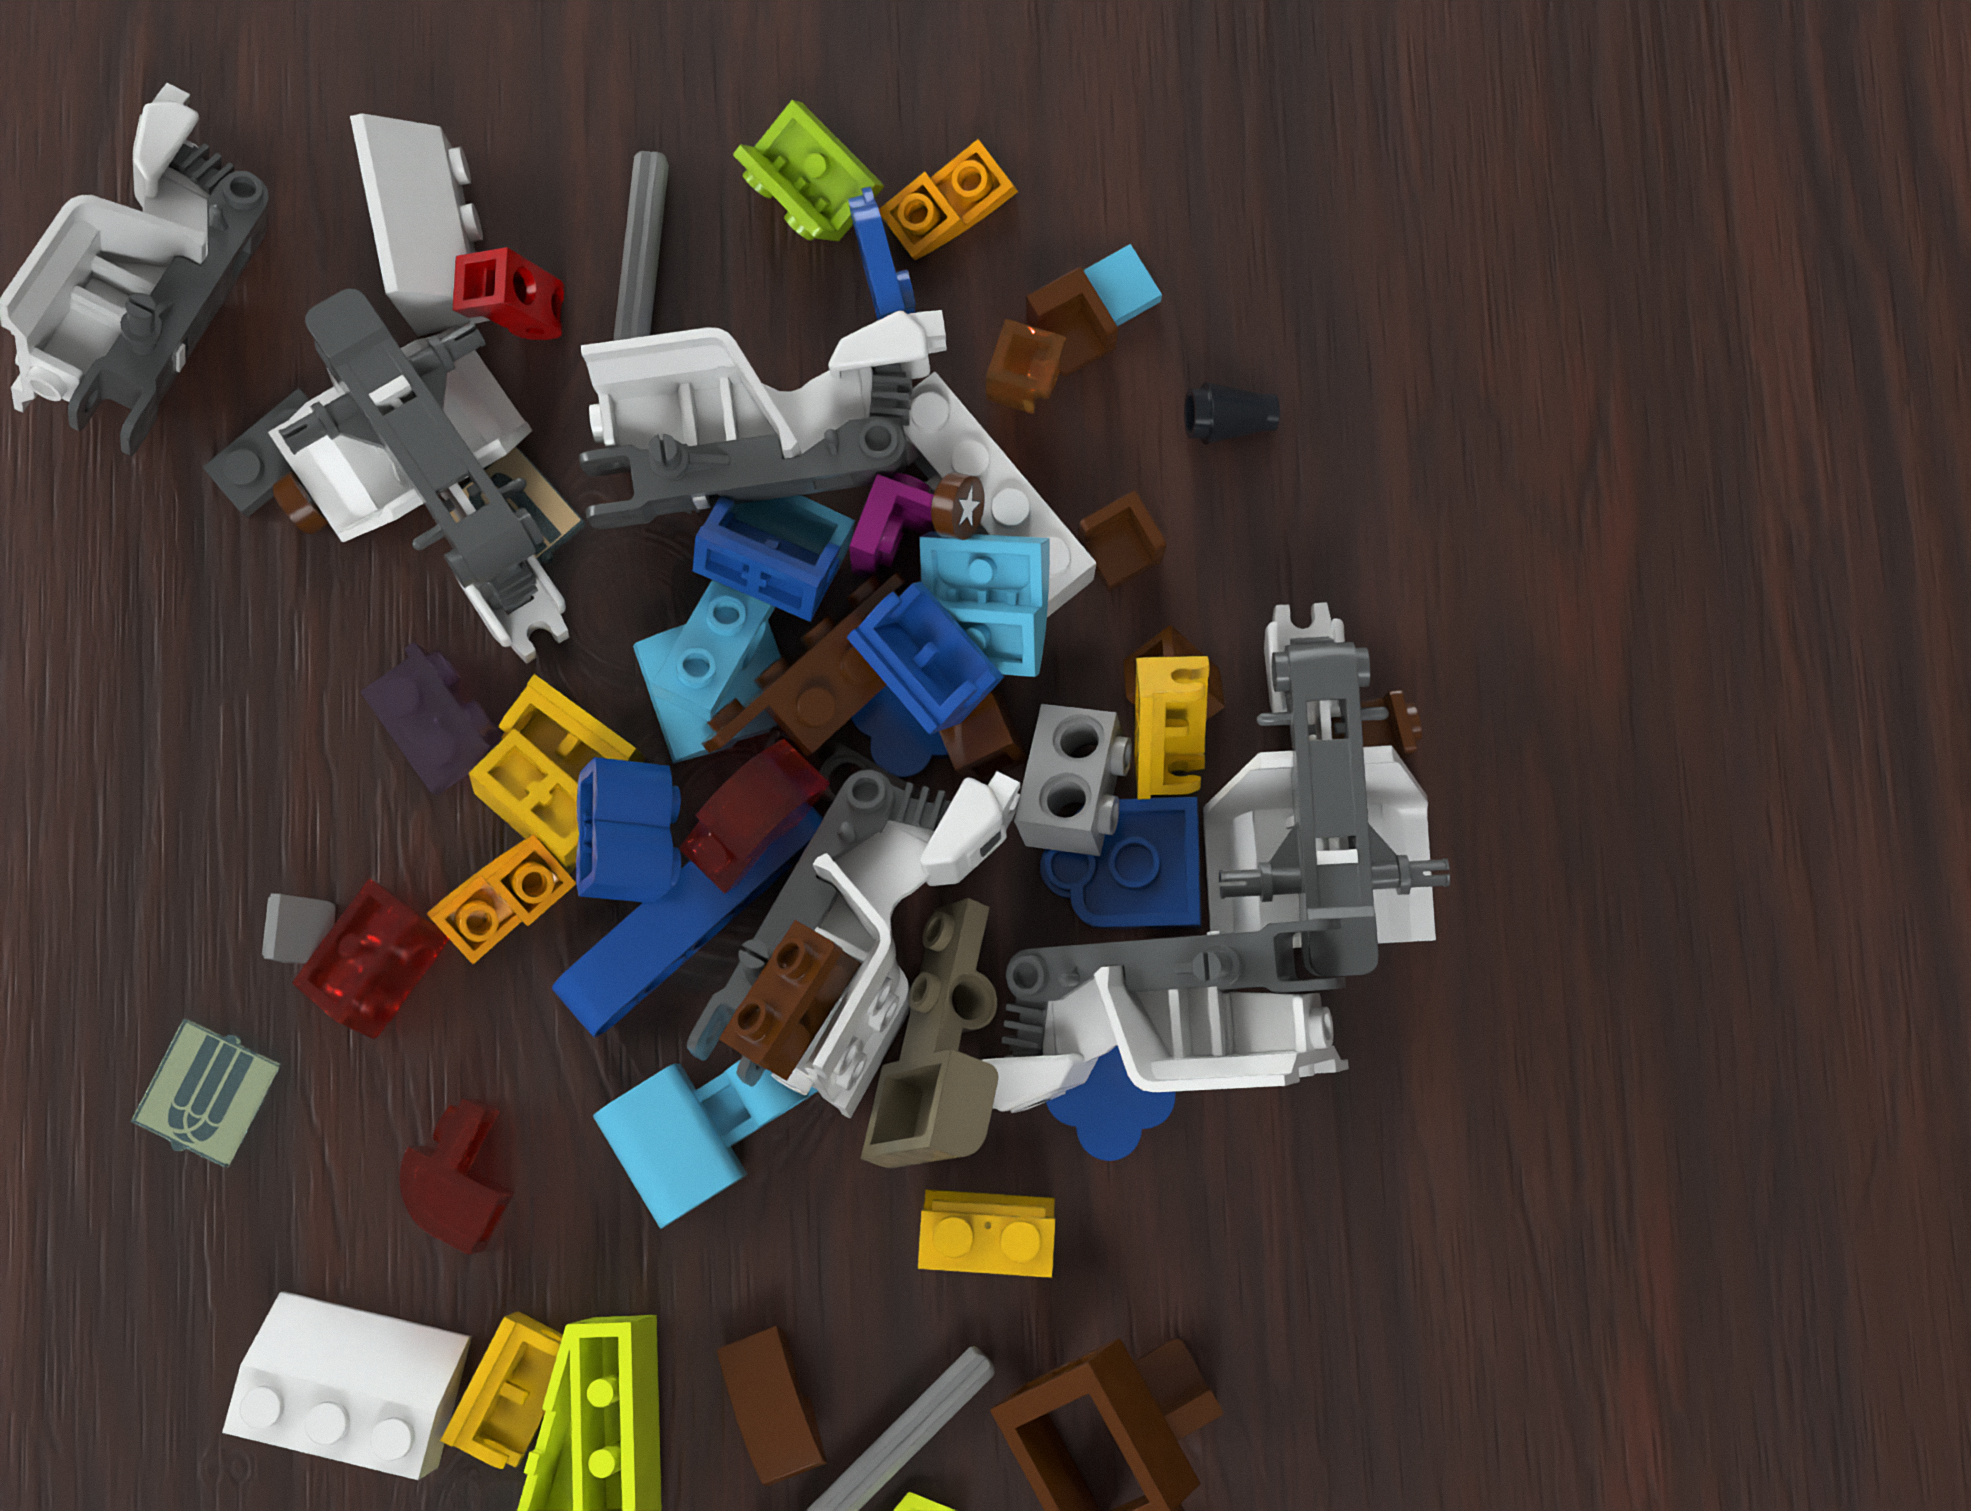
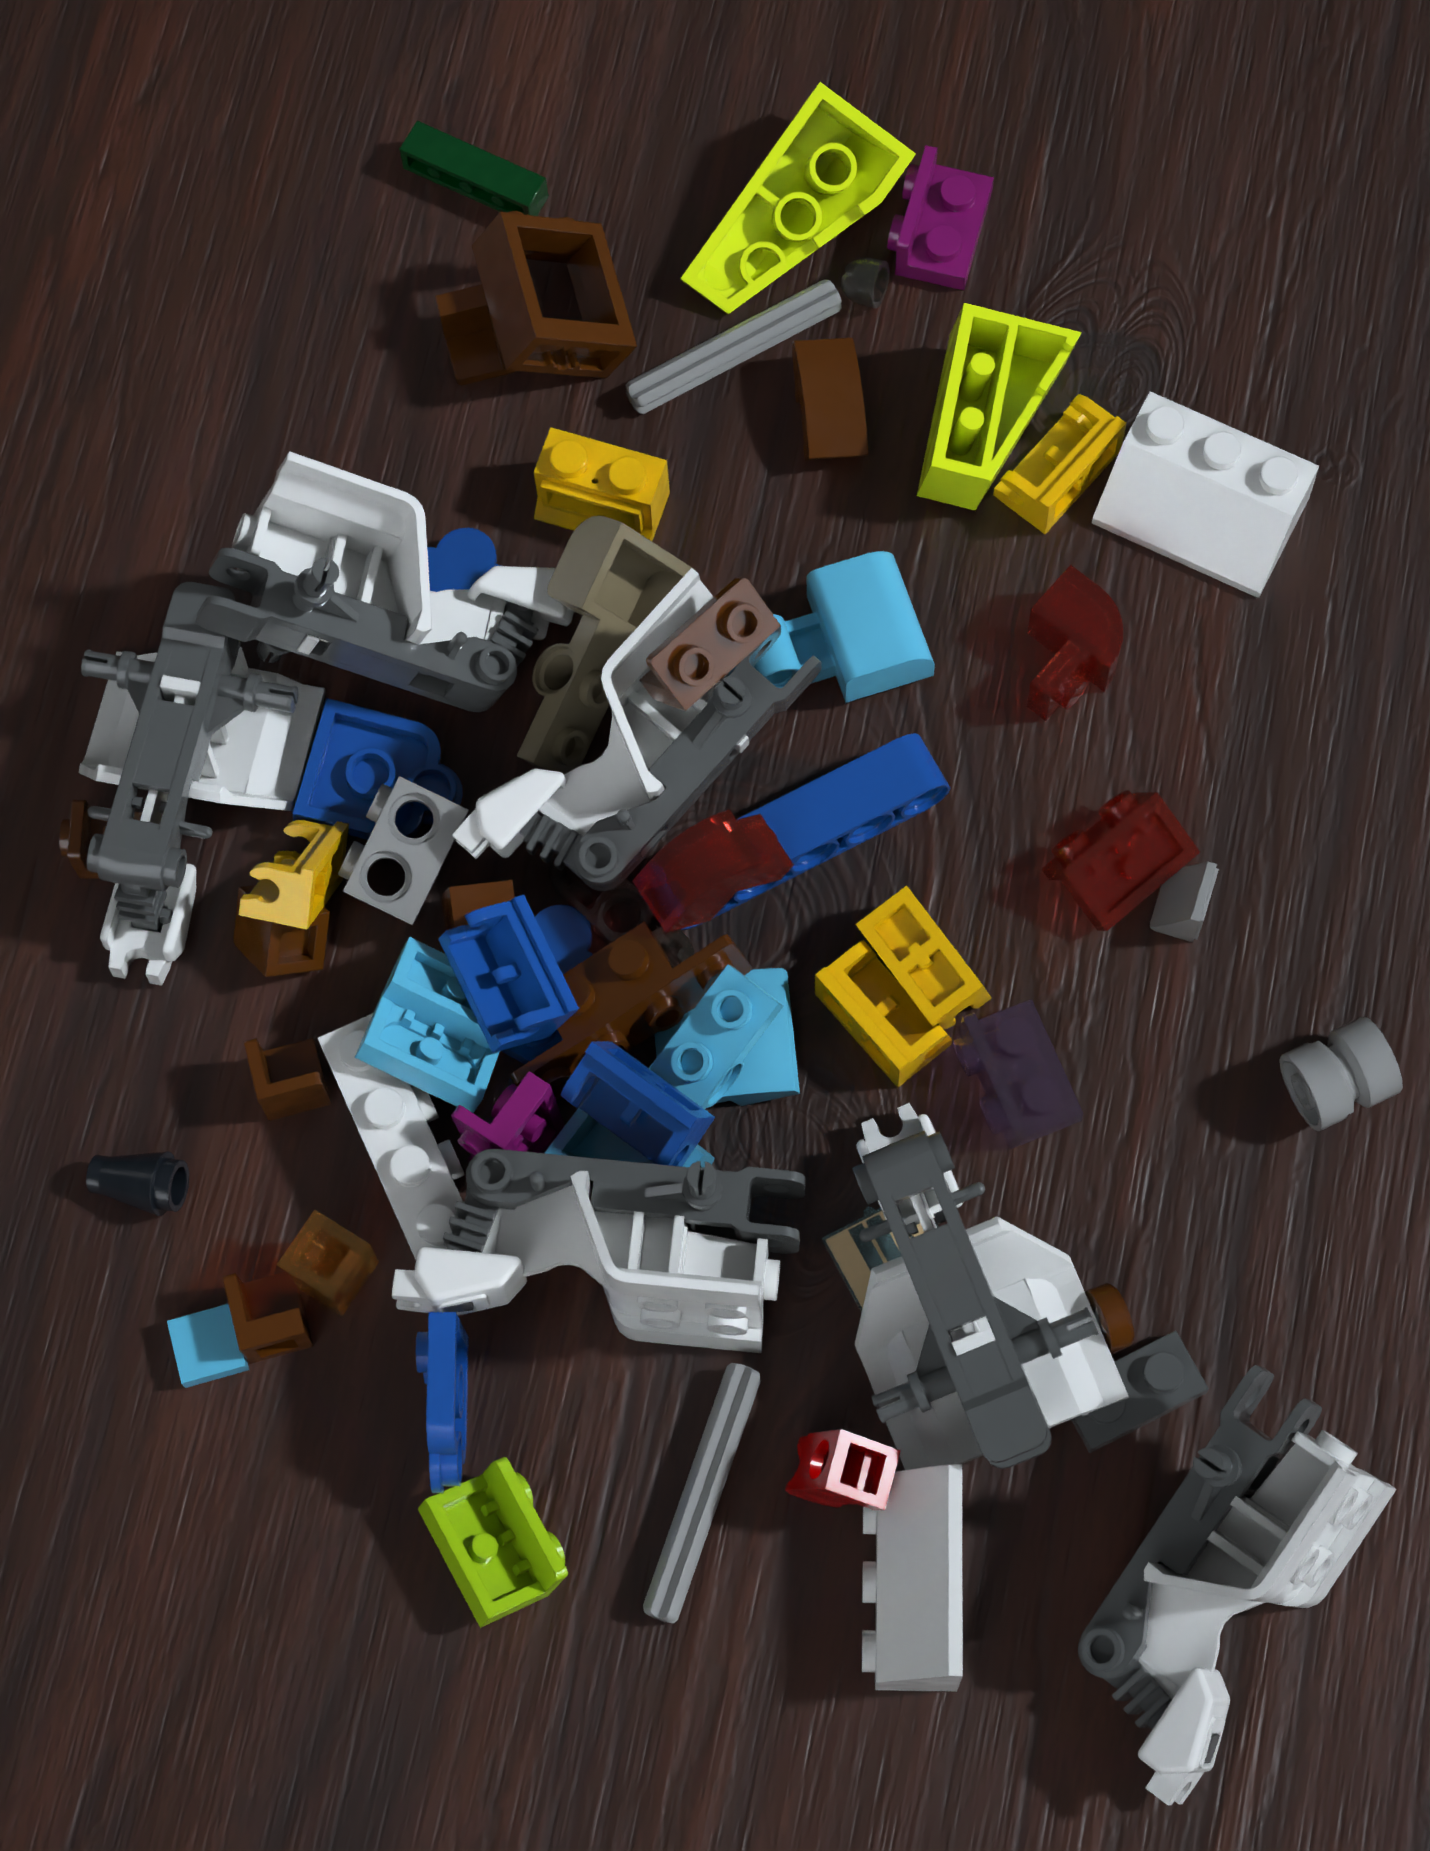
camera: 165 degrees left, 10 degrees down
(111, 789) = (1349, 1069): none -> light grey wheel
(205, 1093) = (1303, 782): clear light blue piece -> none
(501, 896) = (966, 889): light orange slope -> none
(626, 831) = (840, 887): blue brick -> none
(949, 202) = (356, 1485): light orange slope -> none
(958, 506) = (434, 1108): reddish brown tile -> none

